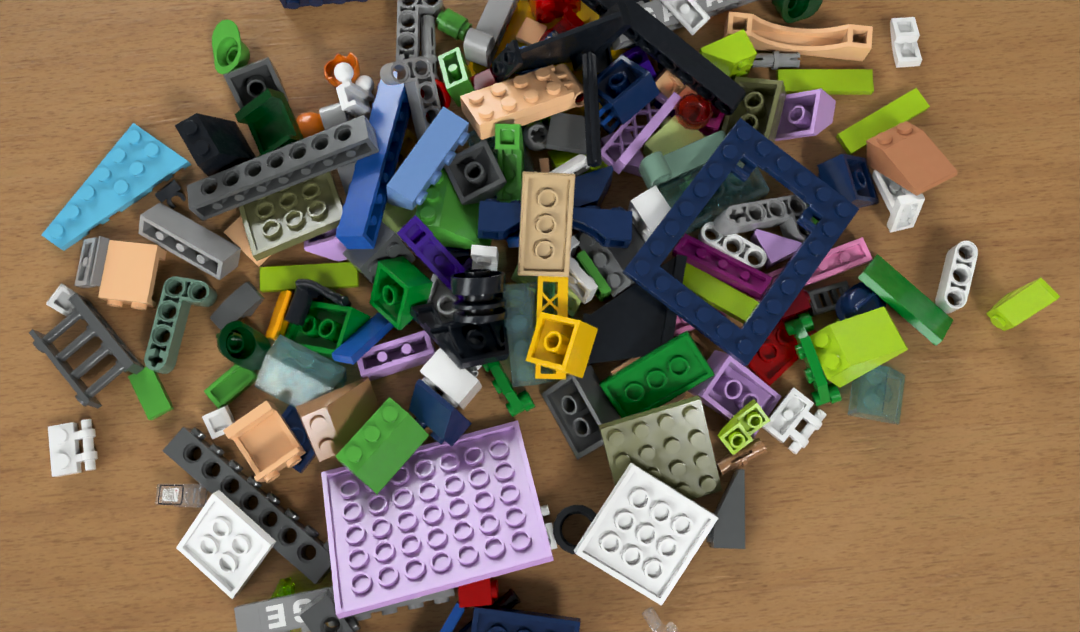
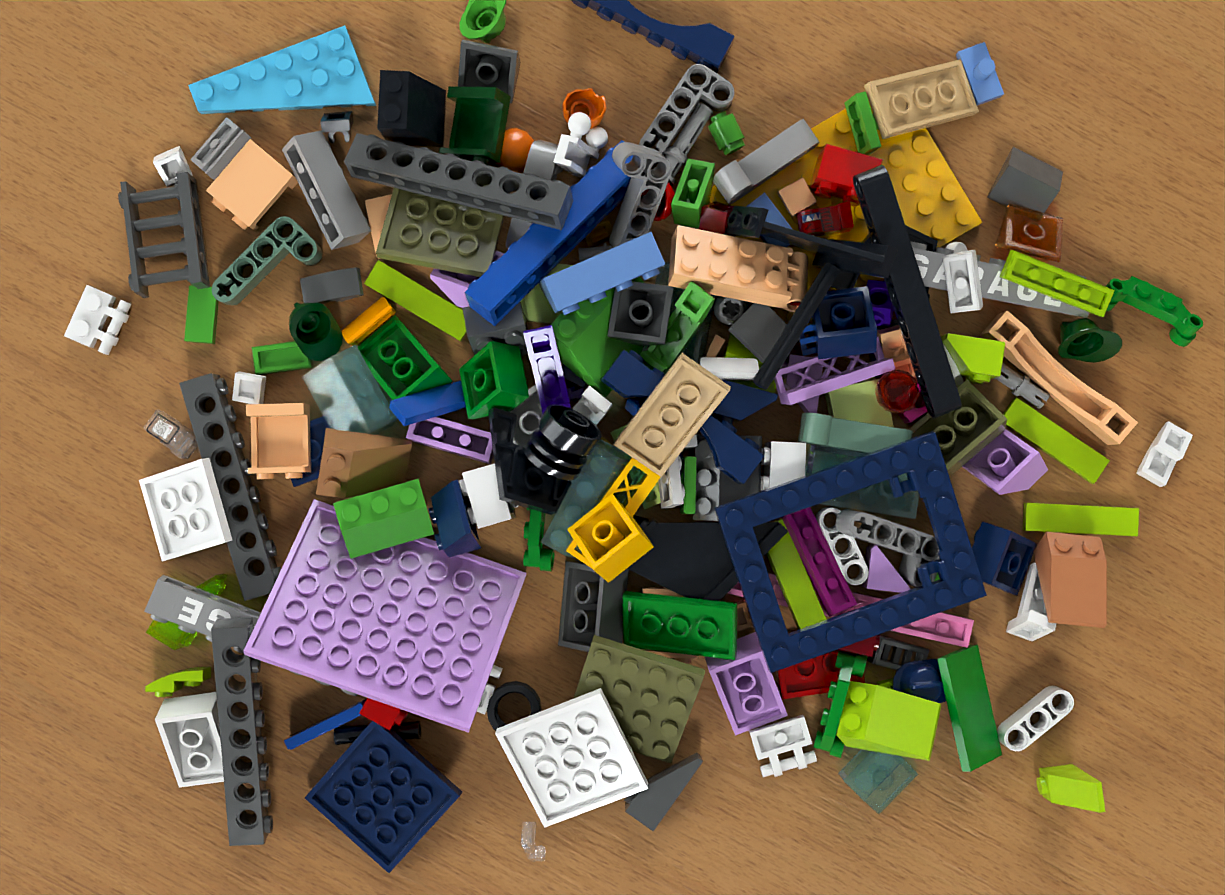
camera: 30 degrees right, 10 degrees up
(303, 297) = (400, 321): black piece -> none
(742, 425) = (723, 721): lime slope -> none
(755, 449) = (709, 745): medium nougat pin -> none

